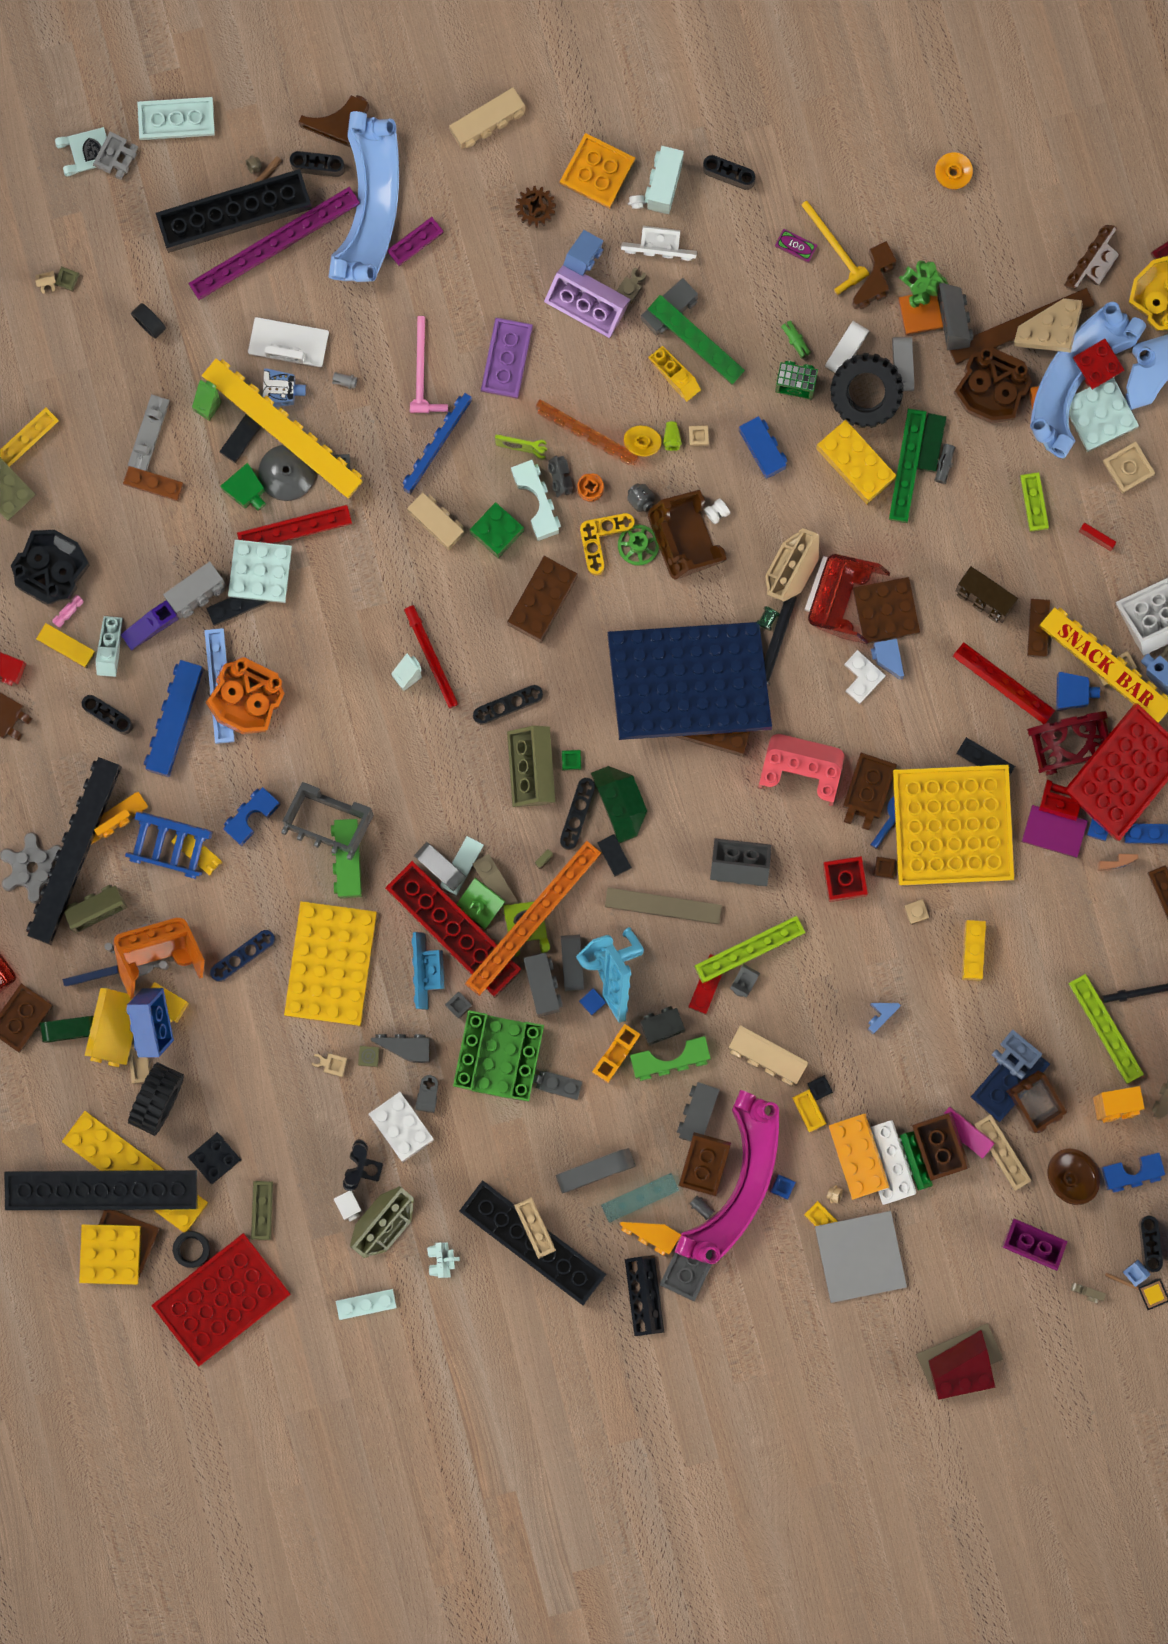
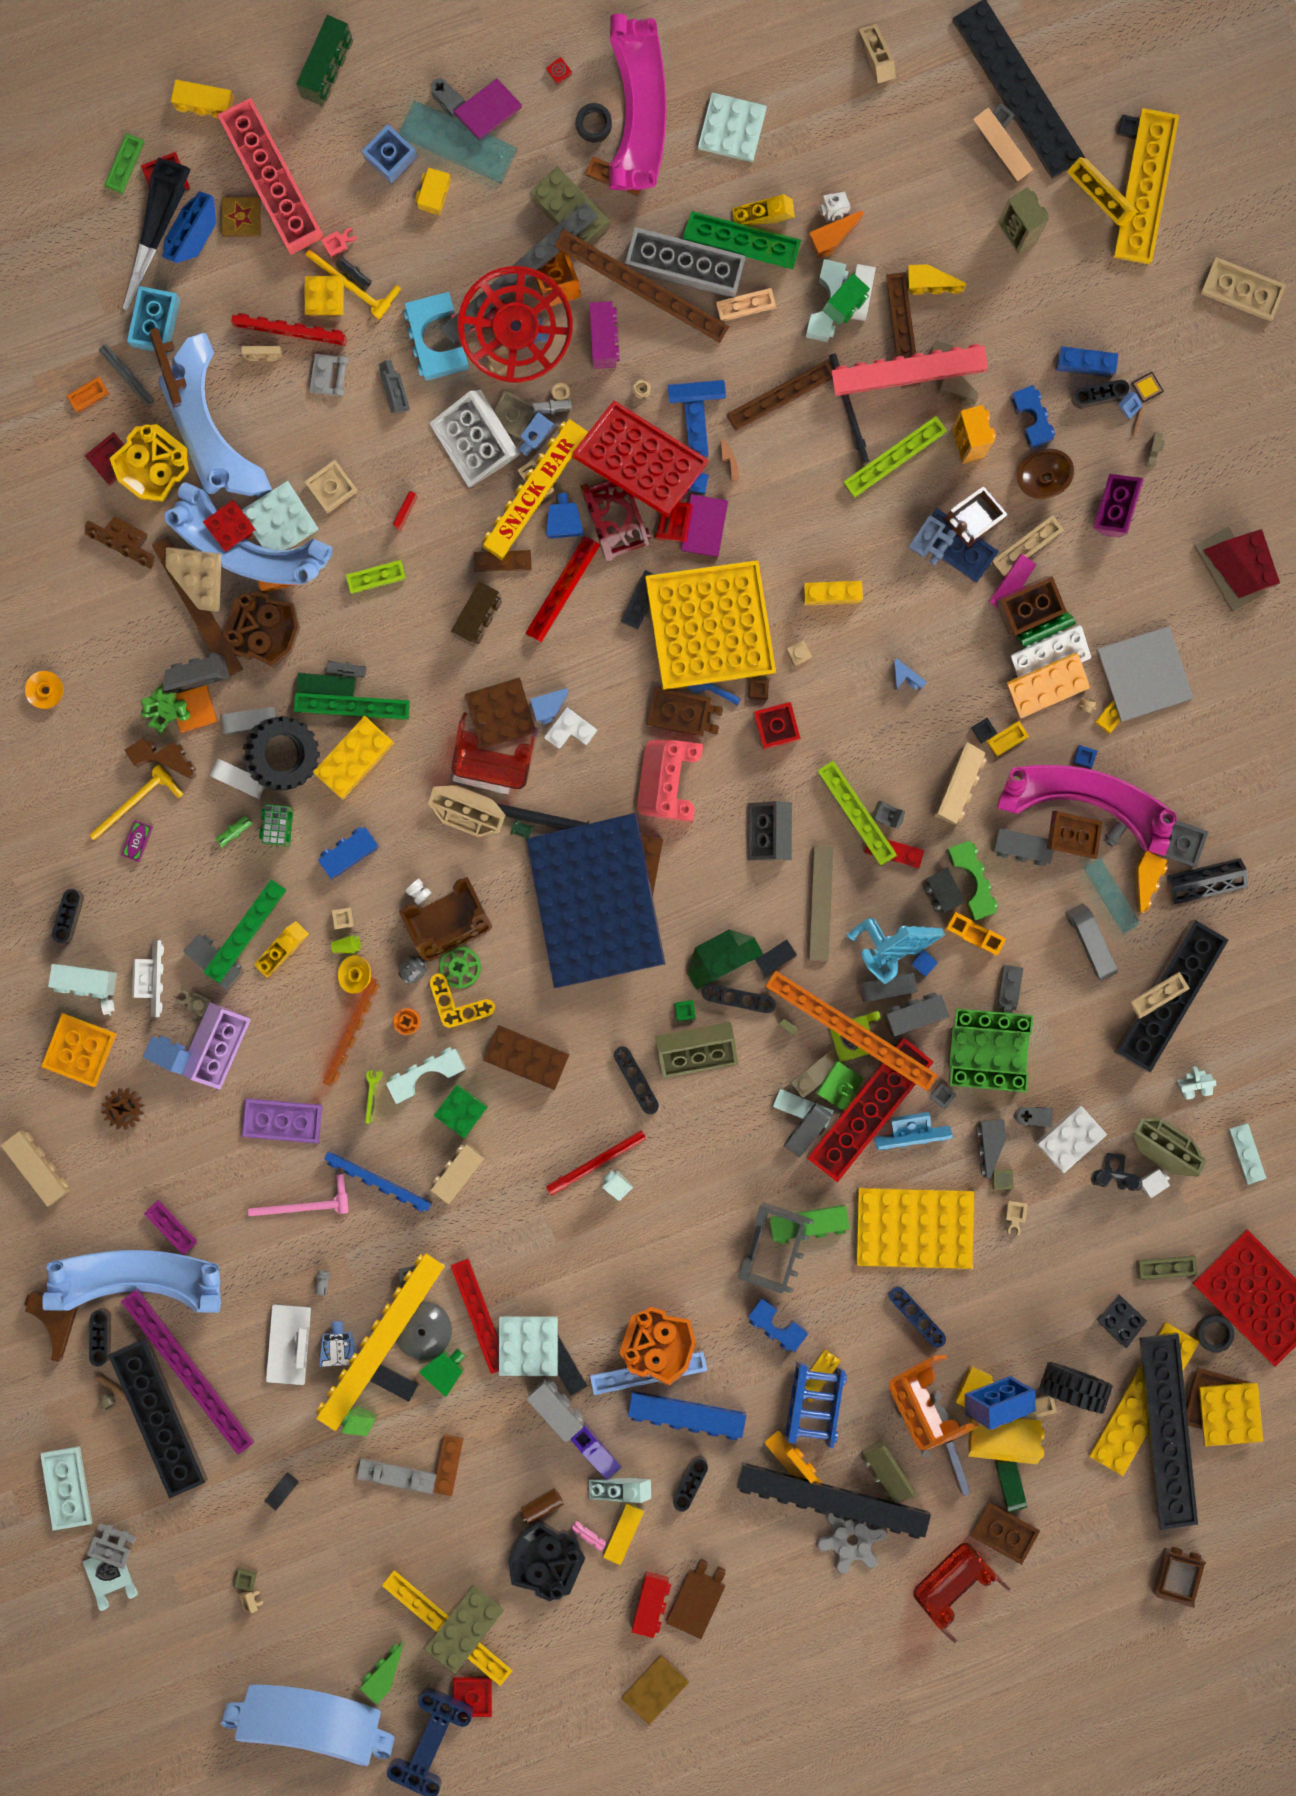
camera: 100 degrees left, 5 degrees up
(102, 568) = (541, 1506): none -> reddish brown brick
(557, 467) = (390, 1056): dark grey hinge -> none

